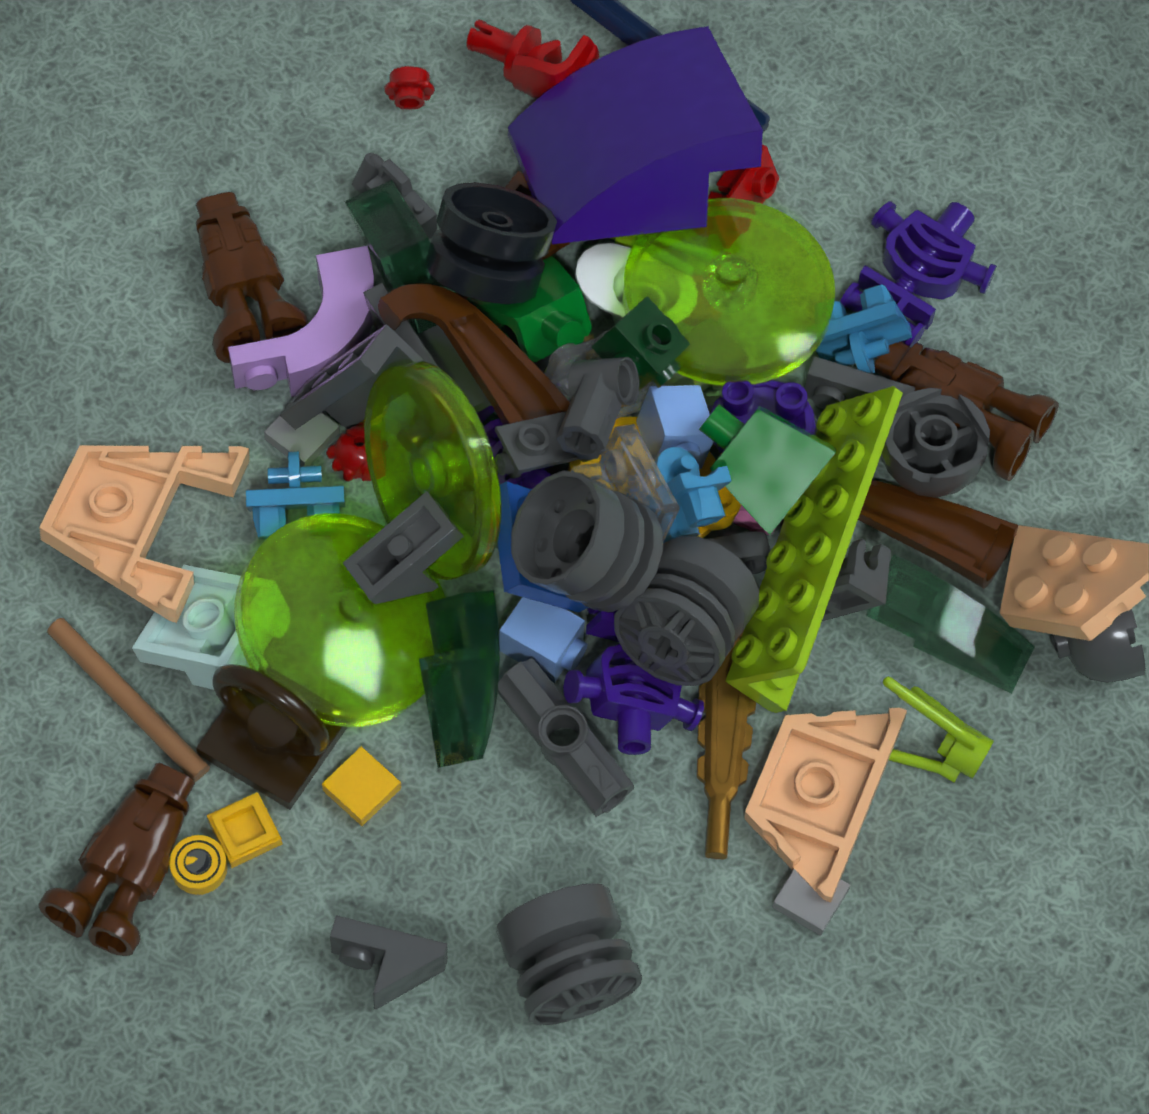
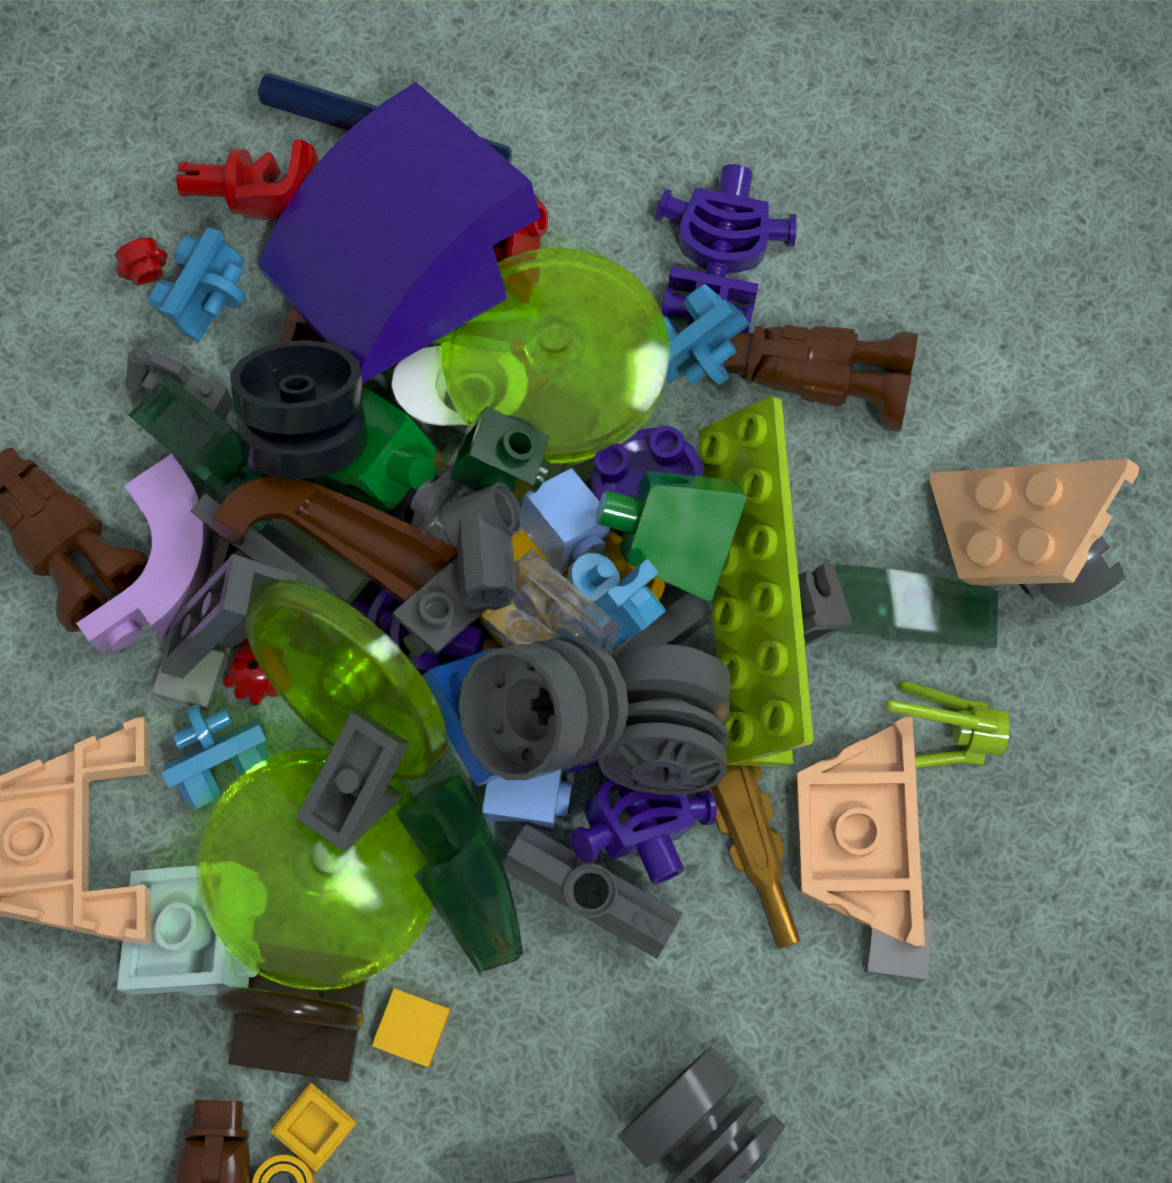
camera: 20 degrees left, 10 degrees up
(128, 699) = (136, 1038): medium nougat bar -> none
(453, 126) = (203, 286): none -> dark azure hips
(834, 383) = (703, 403): dark grey plate -> none
(927, 448) = (825, 437): dark grey cylinder -> none
(943, 530) = (865, 510): reddish brown animal -> none

